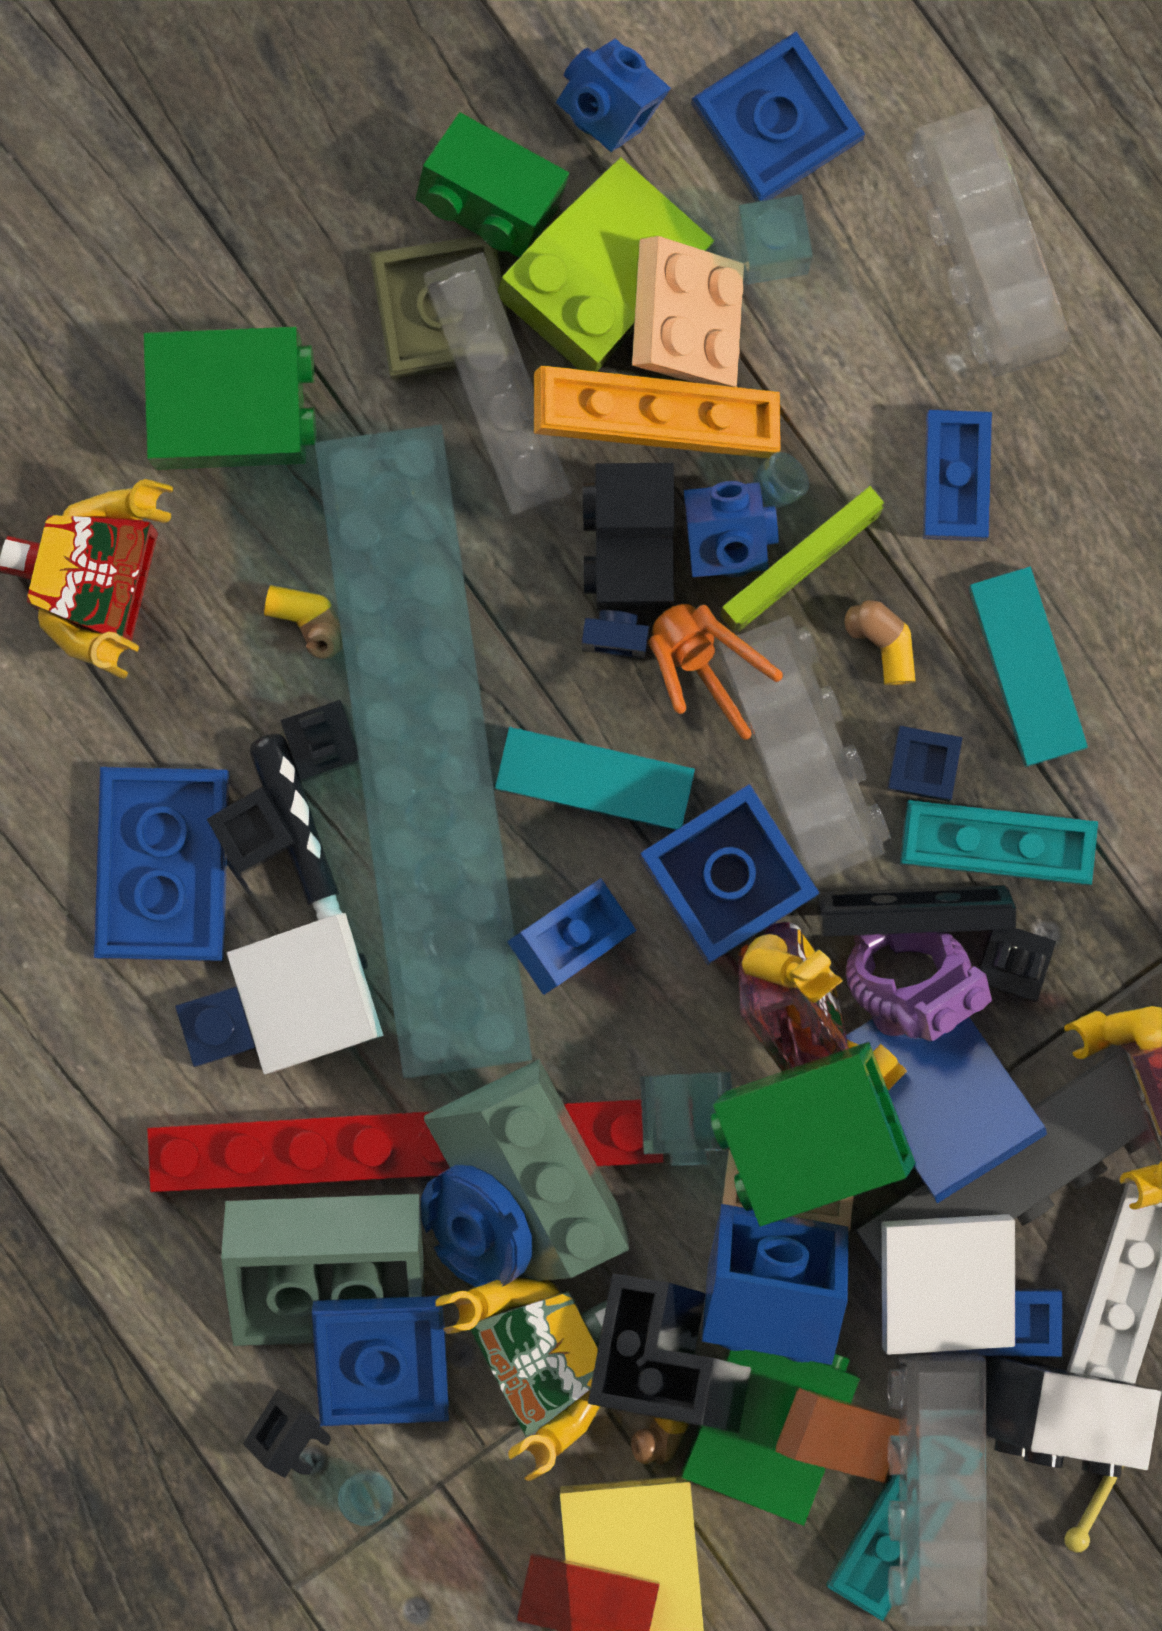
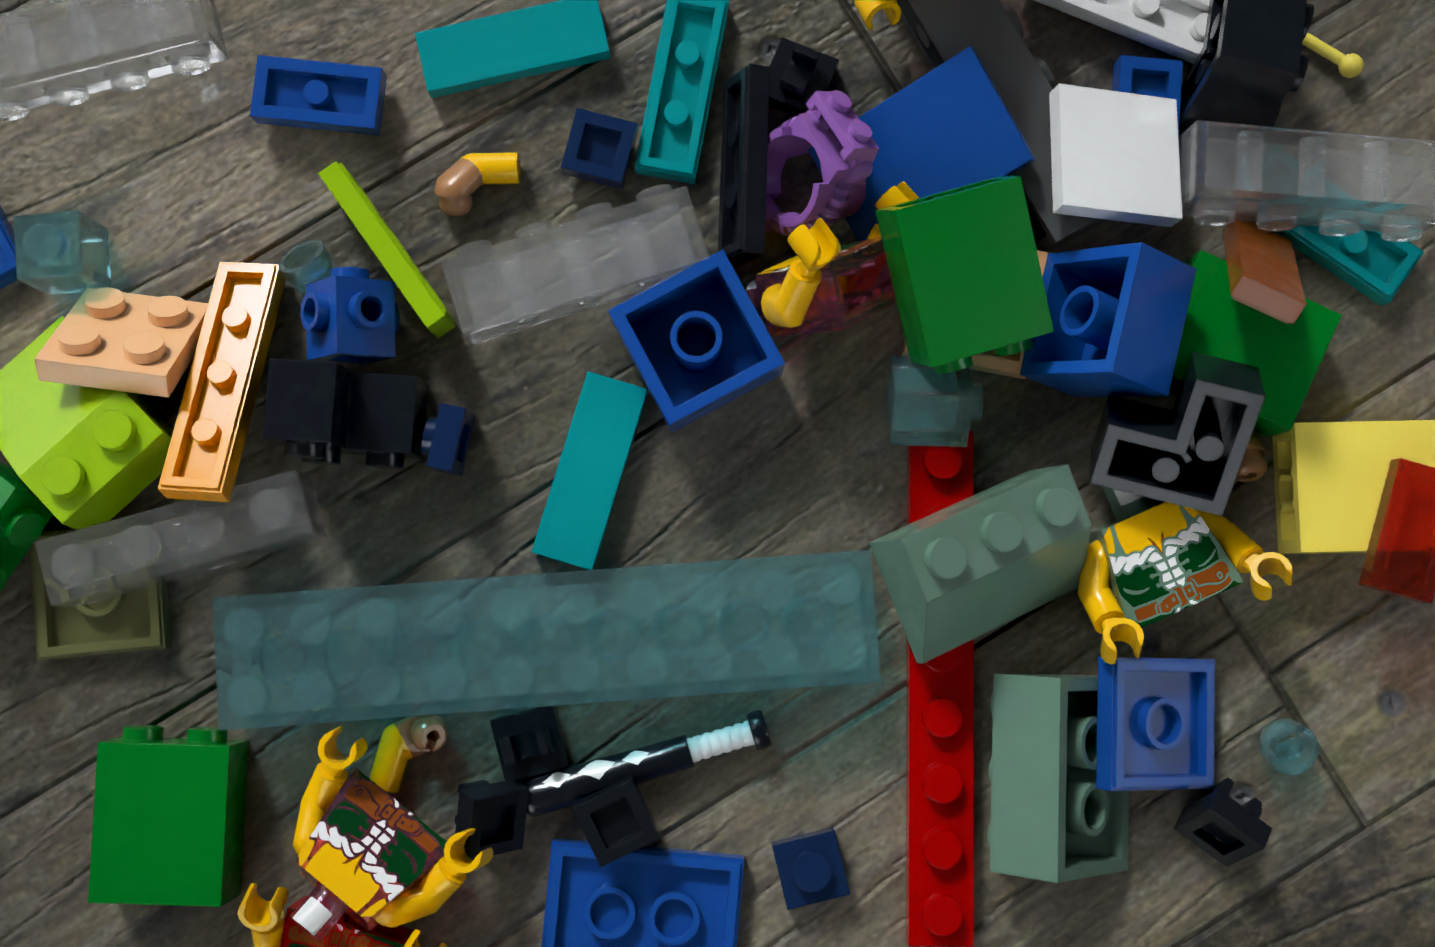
camera: 90 degrees left, 0 degrees up
(208, 595) = (369, 851): none -> torso
(246, 708) = (495, 812): none -> black tile
(304, 993) = (785, 776): white tile -> none
(477, 1226) = (1030, 617): blue tile -> none
(571, 936) = (747, 503): blue plate -> none
(686, 640) = (458, 368): orange plant -> none

